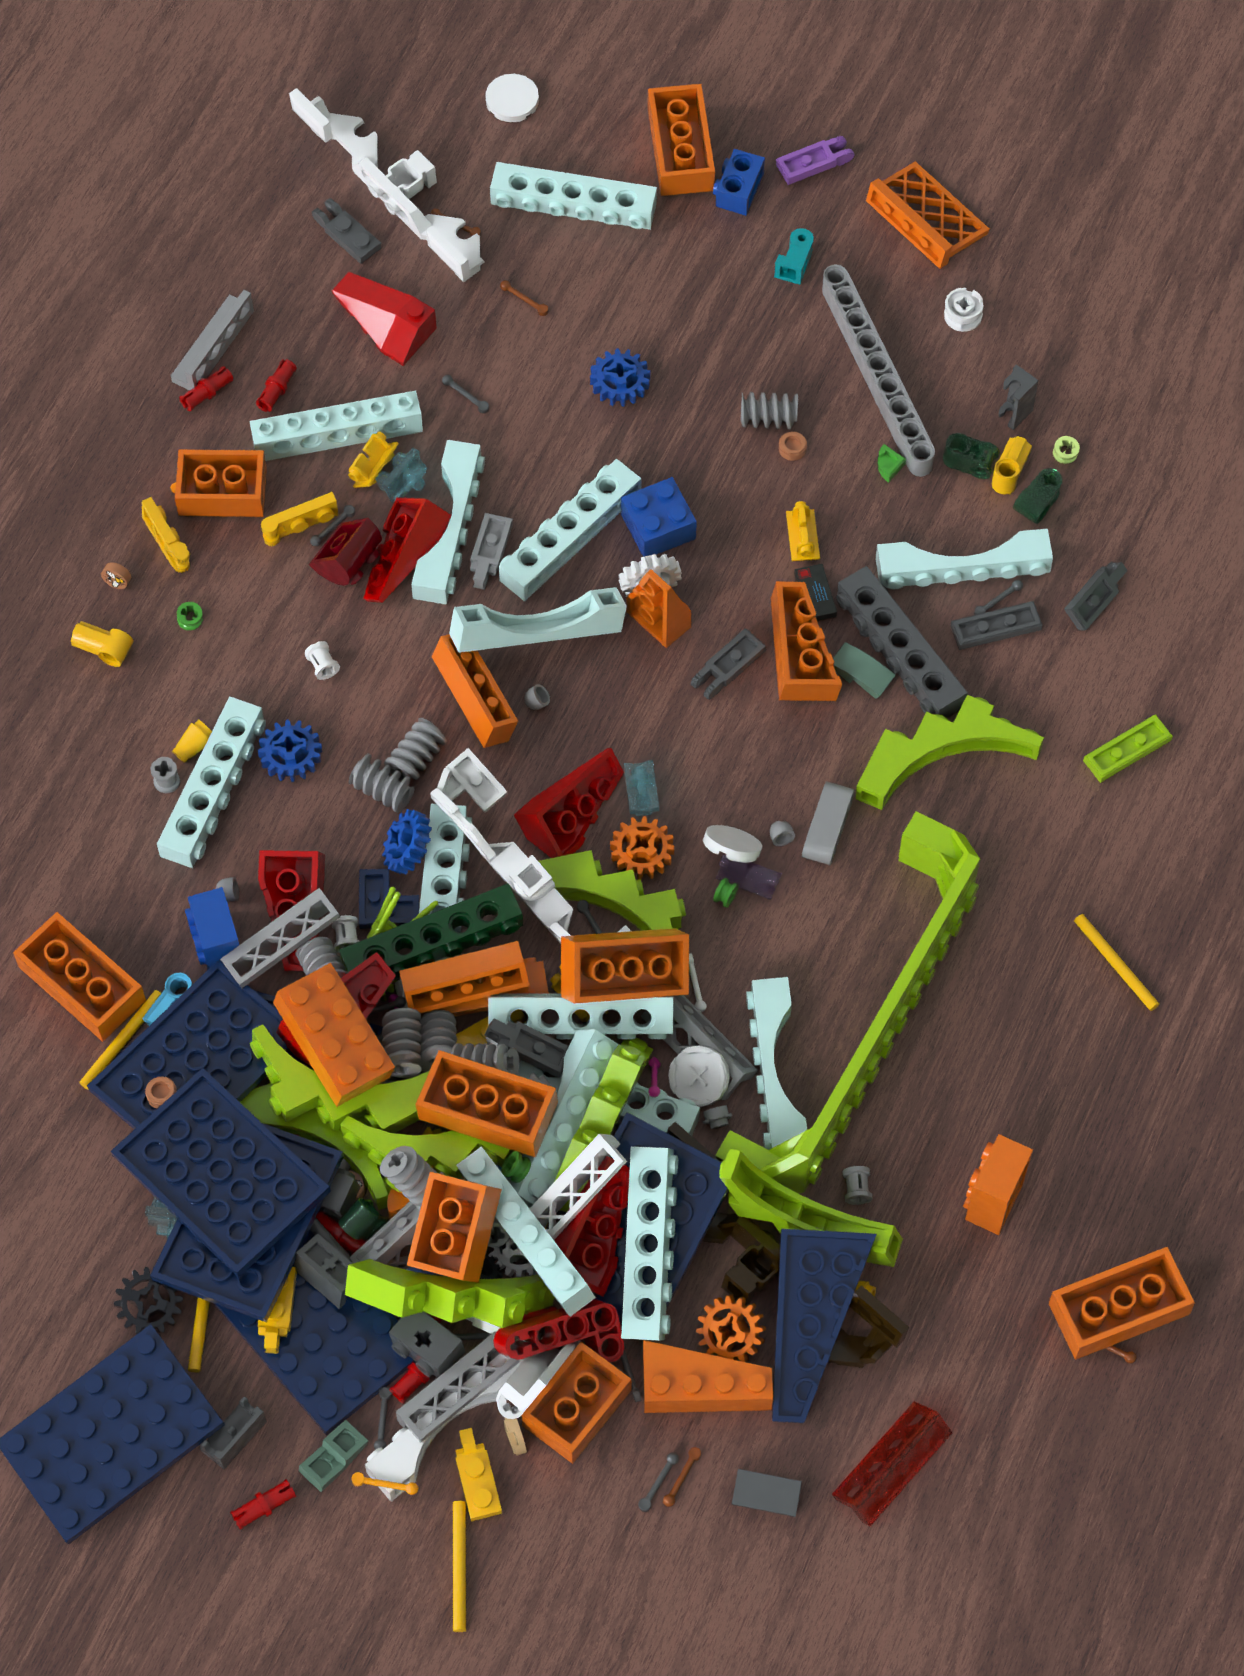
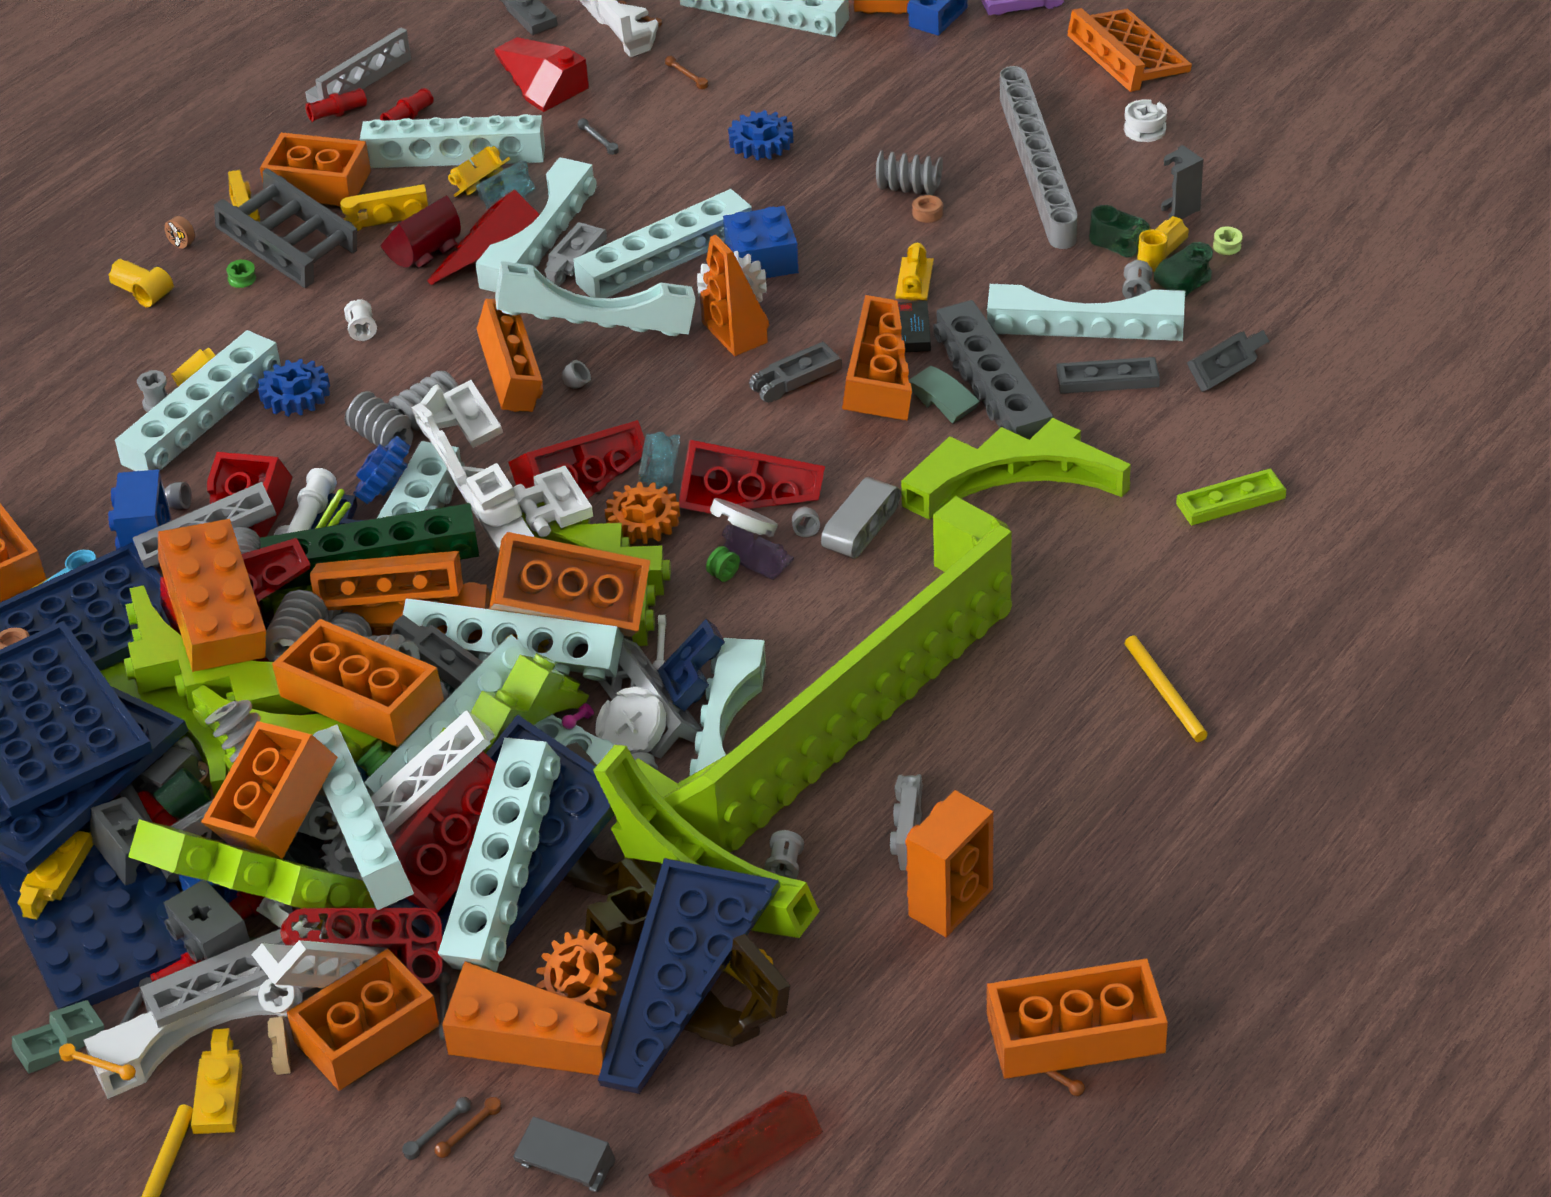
camera: 15 degrees right, 20 degrees down
(218, 589) = (280, 250): none -> dark grey fence
(358, 888) = (312, 499): none -> white pin
(579, 856) = (562, 499): none -> white plate
(710, 797) = (745, 478): none -> red wedge
(727, 1010) = (682, 669): none -> dark blue plate
(794, 264) = (977, 66): teal leg -> none
(889, 462) = (1029, 232): bright green tile -> none
(944, 1129) = (906, 814): none -> light grey hinge
(1000, 513) = (1131, 274): none -> light grey bush
(1016, 586) = (1140, 345): dark grey hinge -> none

